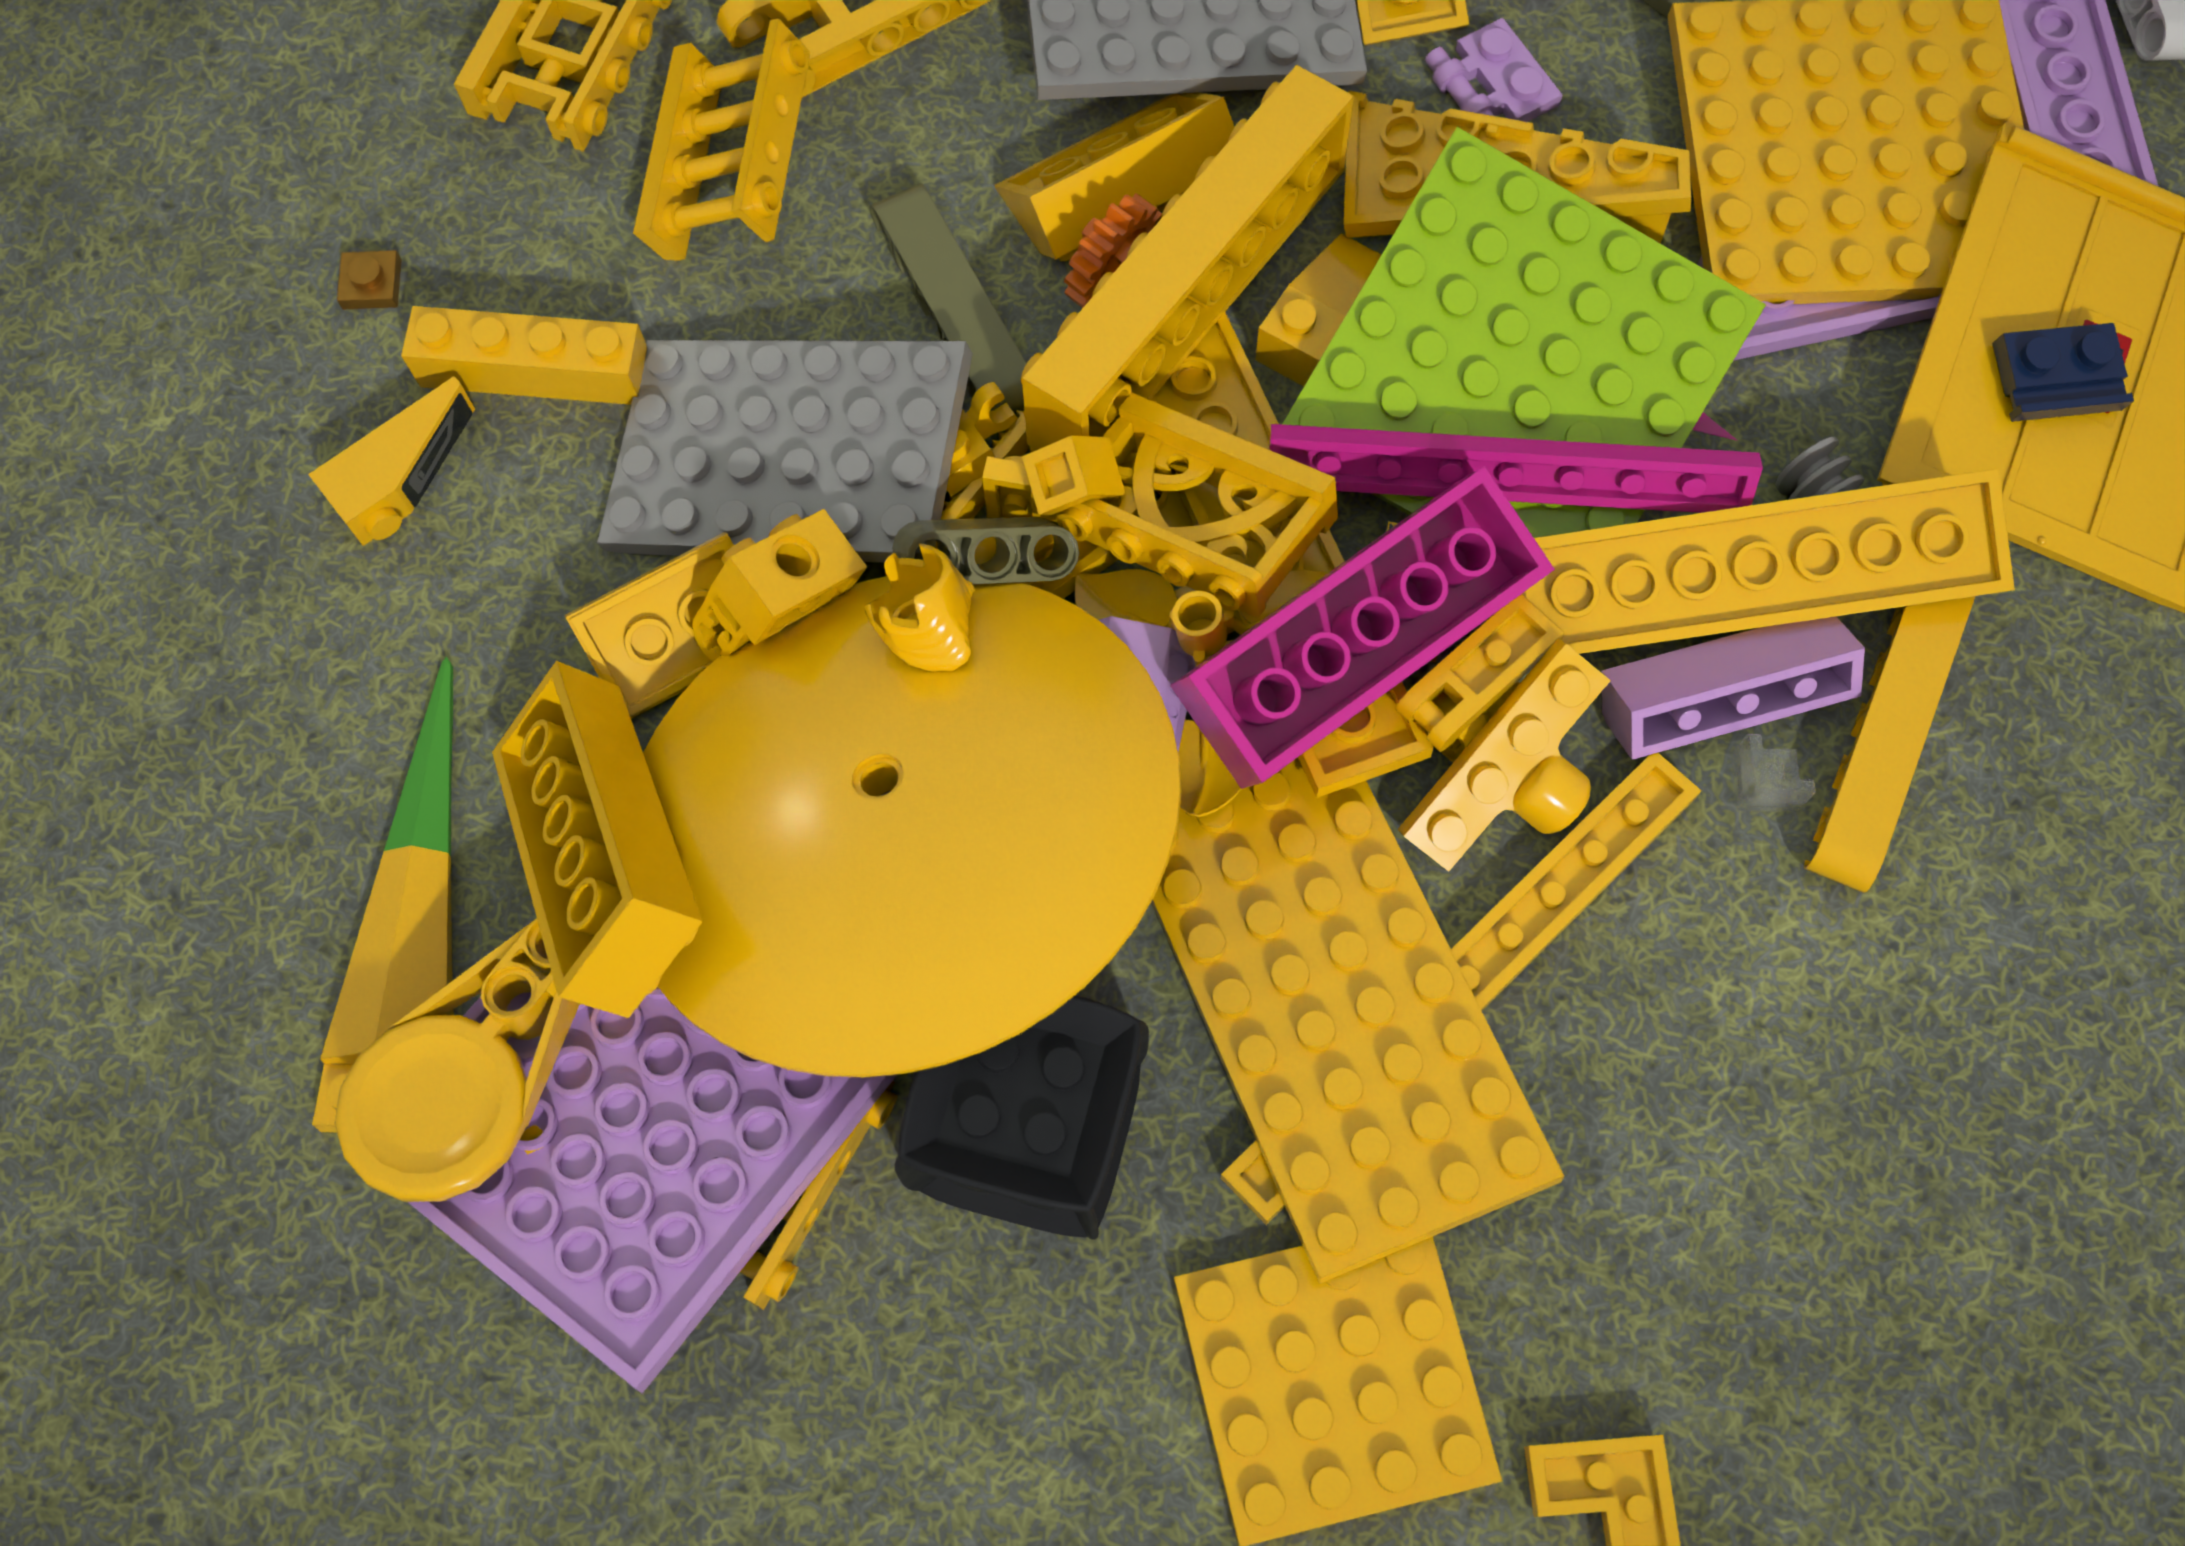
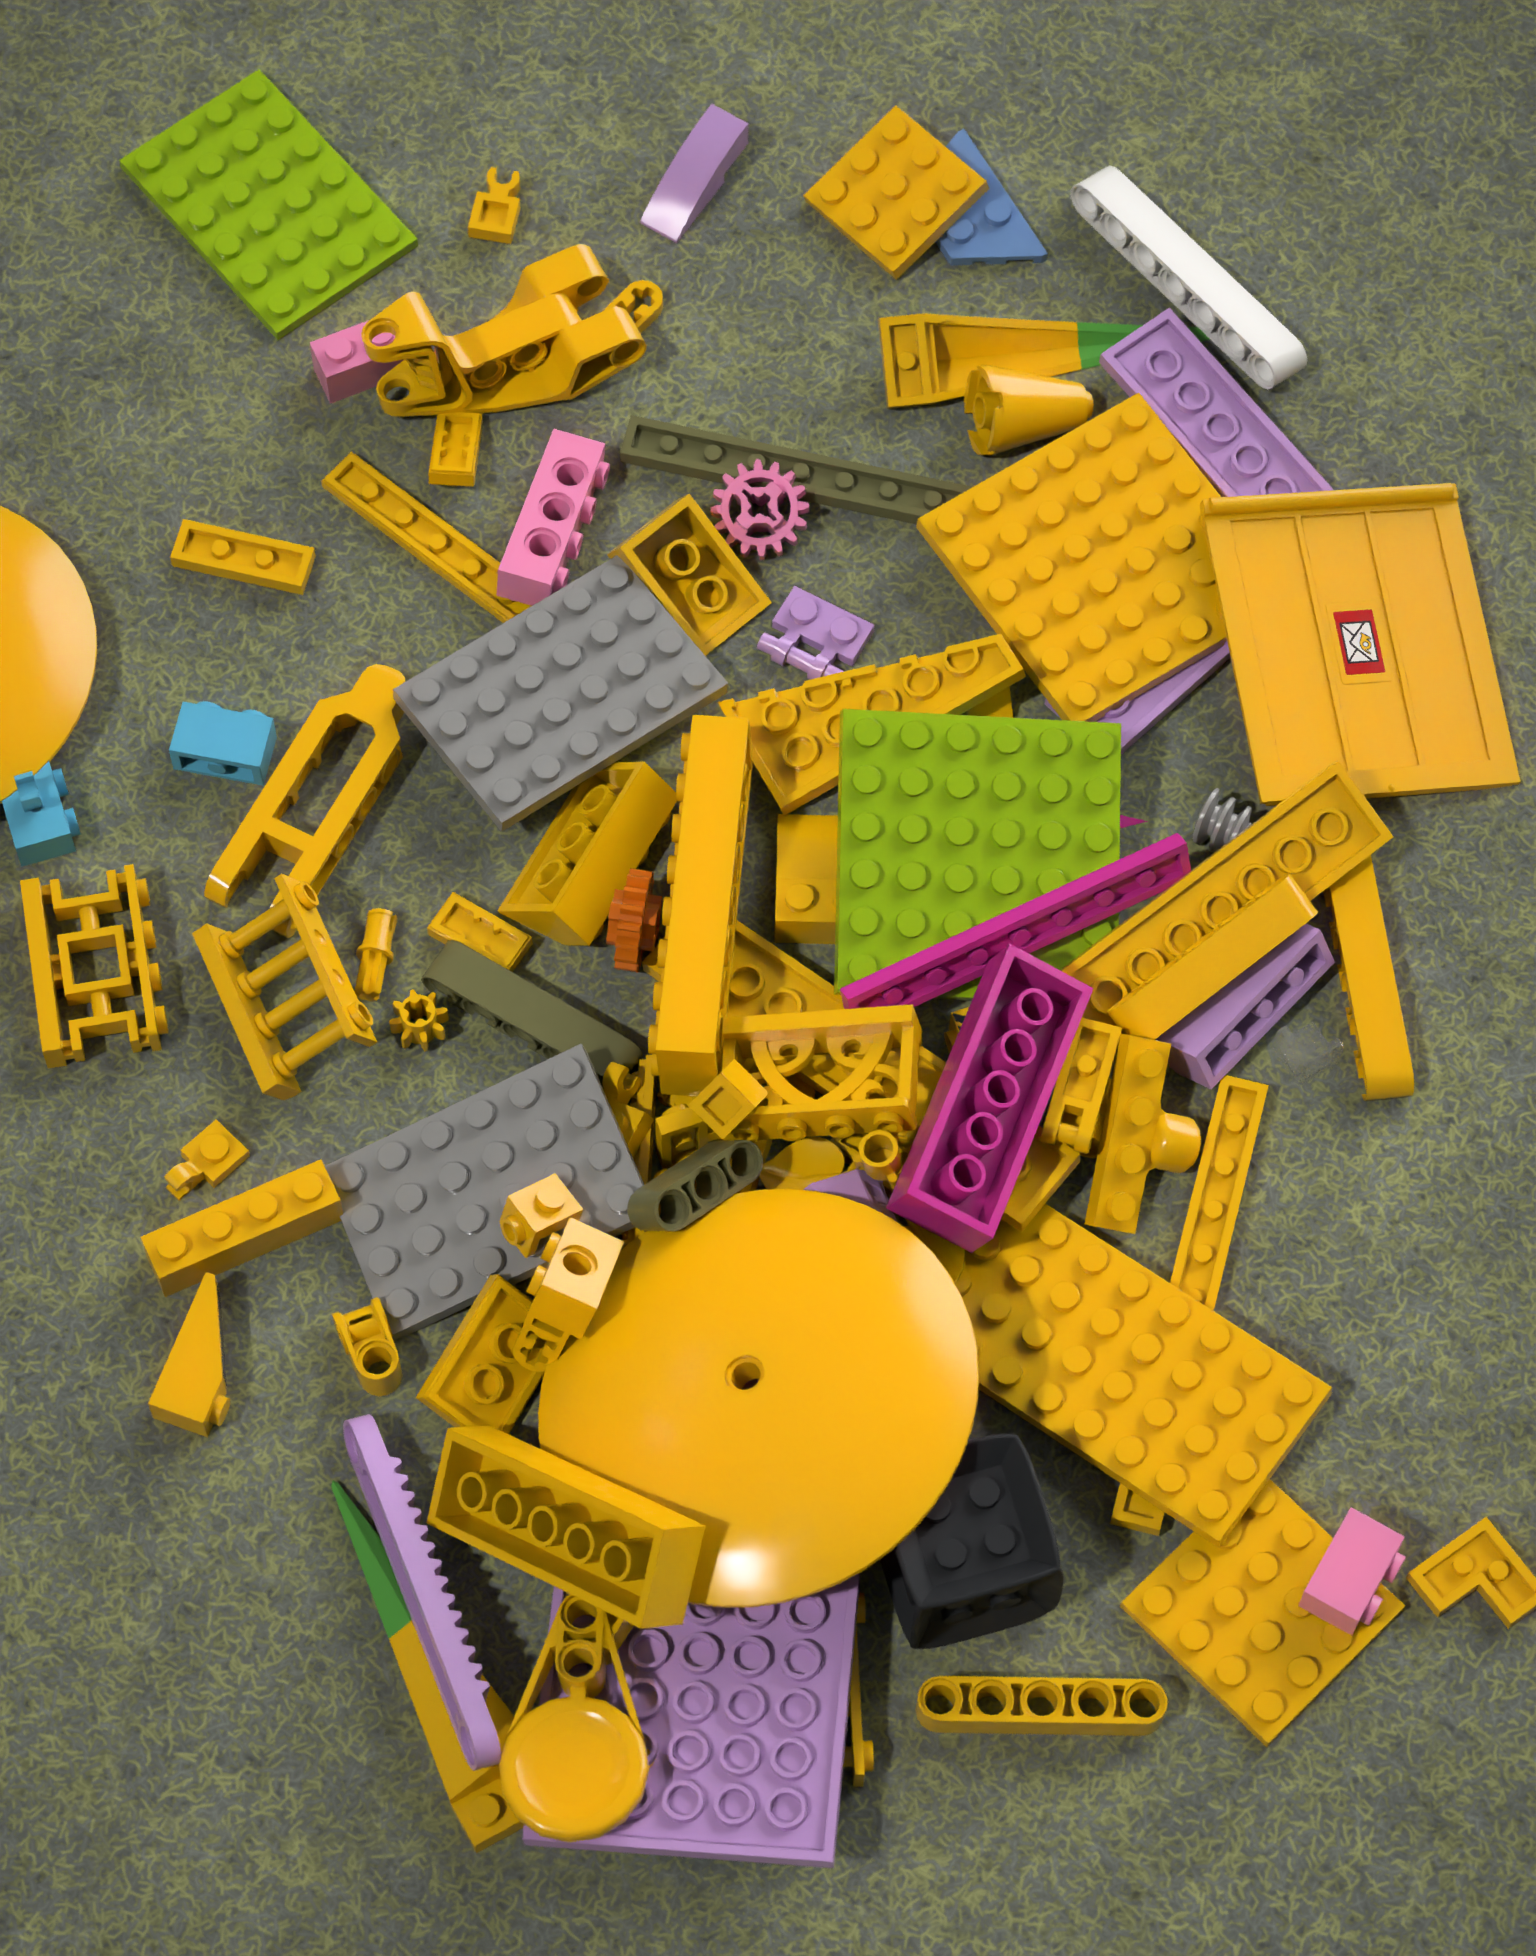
camera: 35 degrees left, 5 degrees down
(369, 279) = (68, 1237): pearl gold plate -> none
(432, 829) = (424, 1591): none -> lavender gear
(553, 275) = (208, 1157): none -> yellow plate
(569, 534) = (369, 1340): none -> yellow piece
(802, 487) = (537, 1212): none -> yellow bracket
(839, 246) = (421, 1031): none -> yellow gear
(842, 162) = (375, 953): none -> yellow axle
(924, 611) = (697, 1248): yellow hair -> none
(959, 195) = (480, 931): none -> yellow plate
(987, 1314) = (1061, 1692): none -> yellow beam
(1458, 1410) = (1351, 1572): none -> bright pink brick
(1720, 616) = (1214, 960): none -> yellow beam
(2062, 371) = (1339, 660): dark blue plate -> none

